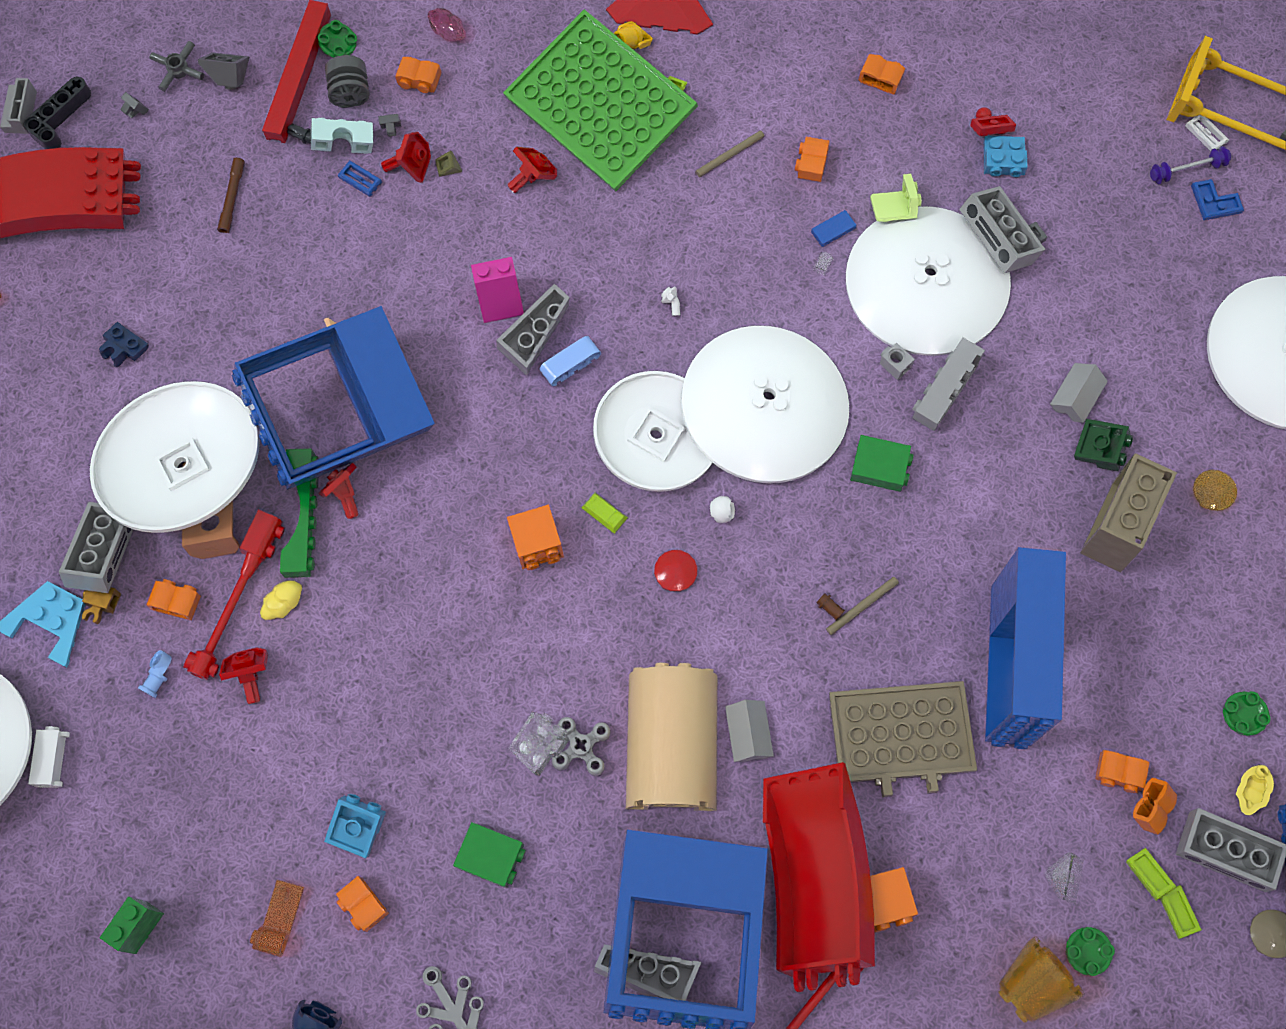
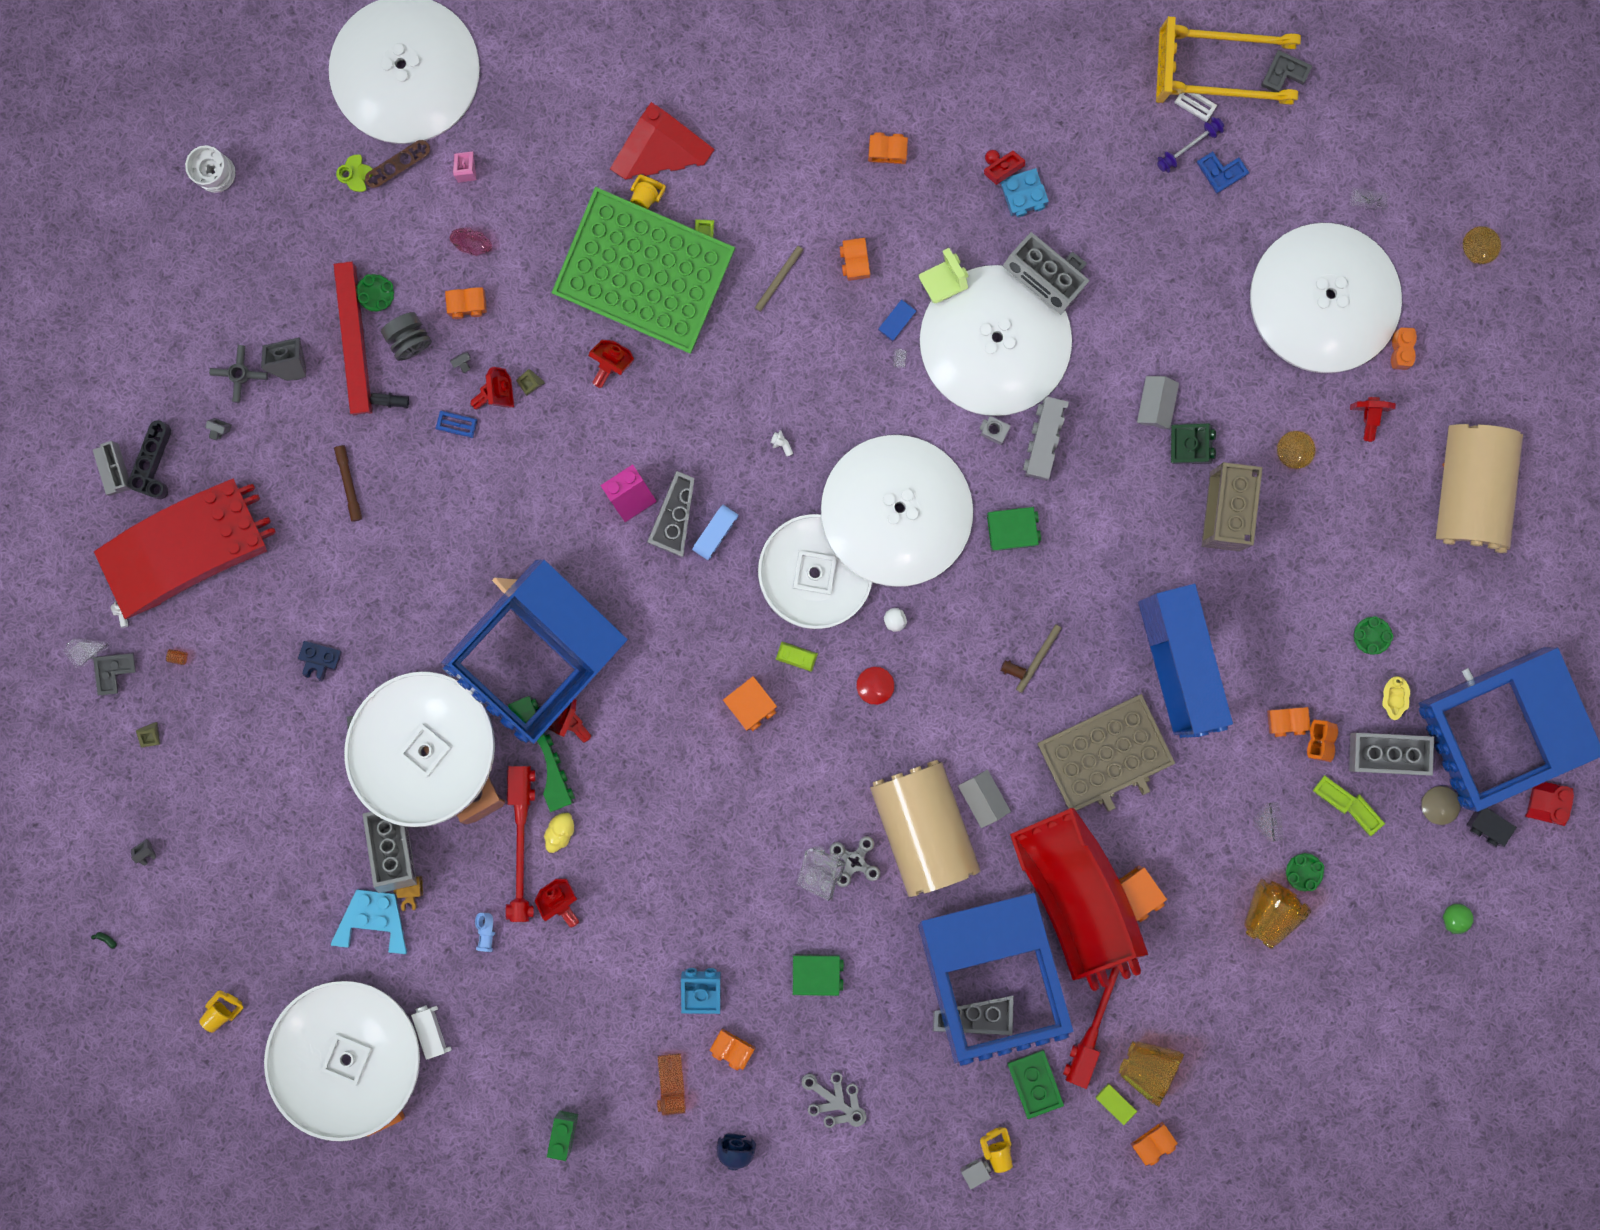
camera: 20 degrees left, 15 degrees up
(173, 599) = (470, 866): orange brick -> none
(357, 133) = (438, 383): light aqua arch -> none

